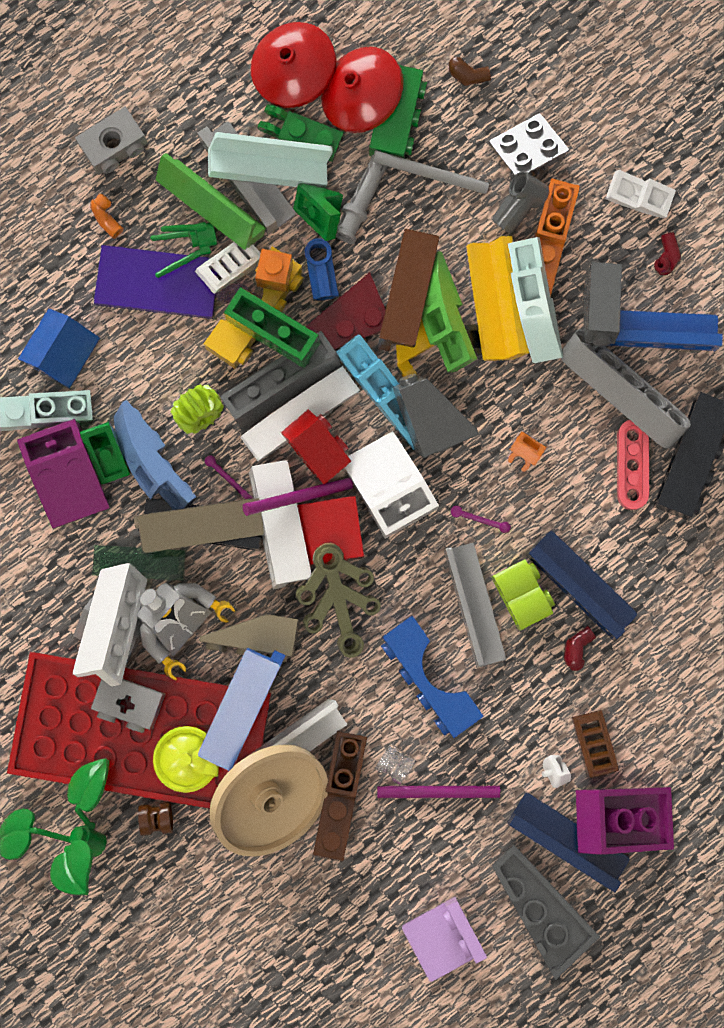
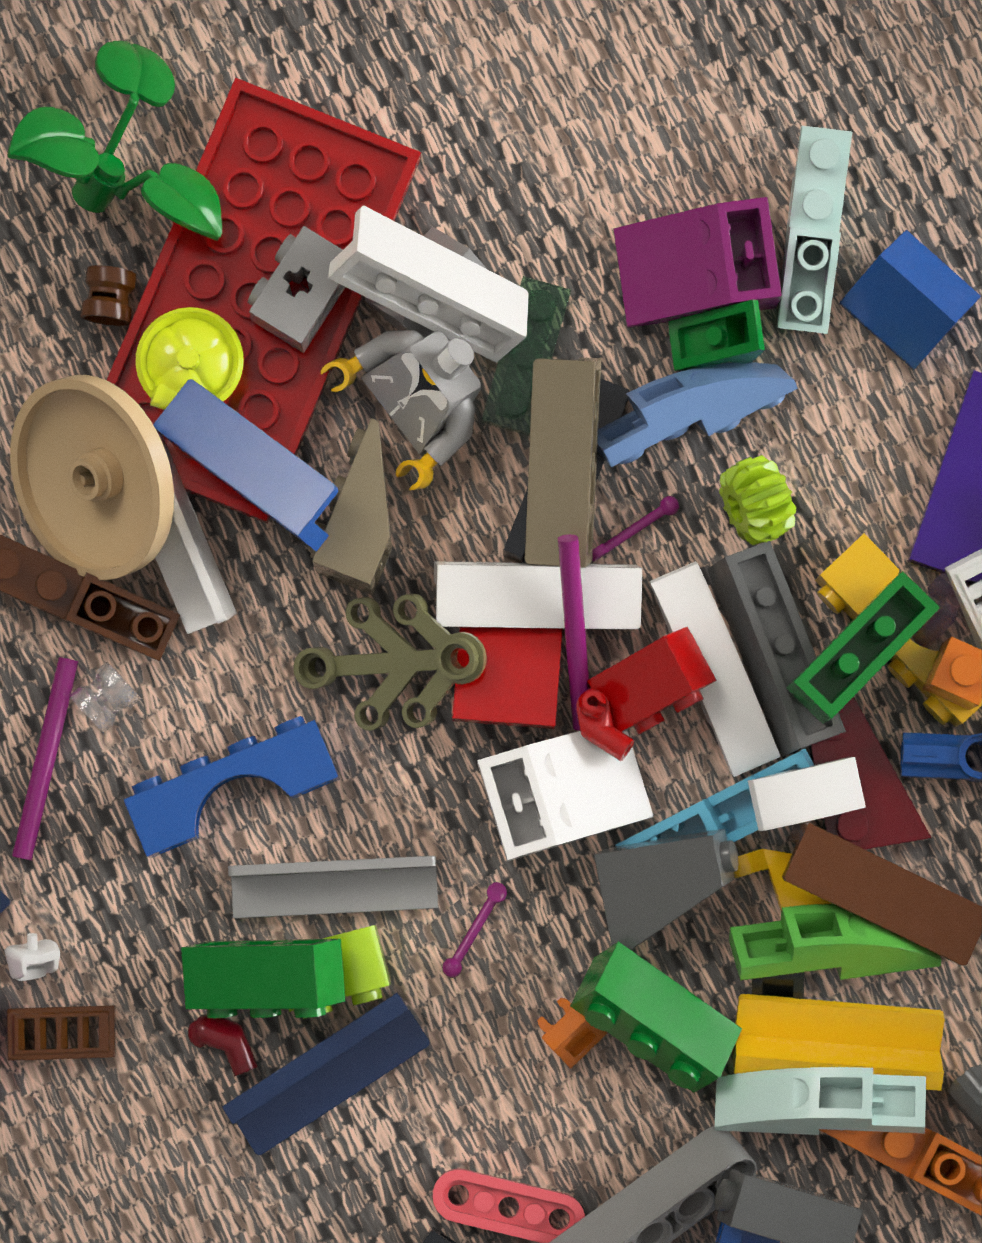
camera: 100 degrees right, 0 degrees up
(348, 472) = (597, 724): none -> red arm
(362, 344) = (806, 794): none -> white slope
(508, 403) = (656, 1018): none -> brick
(537, 631) = (263, 977): none -> green brick

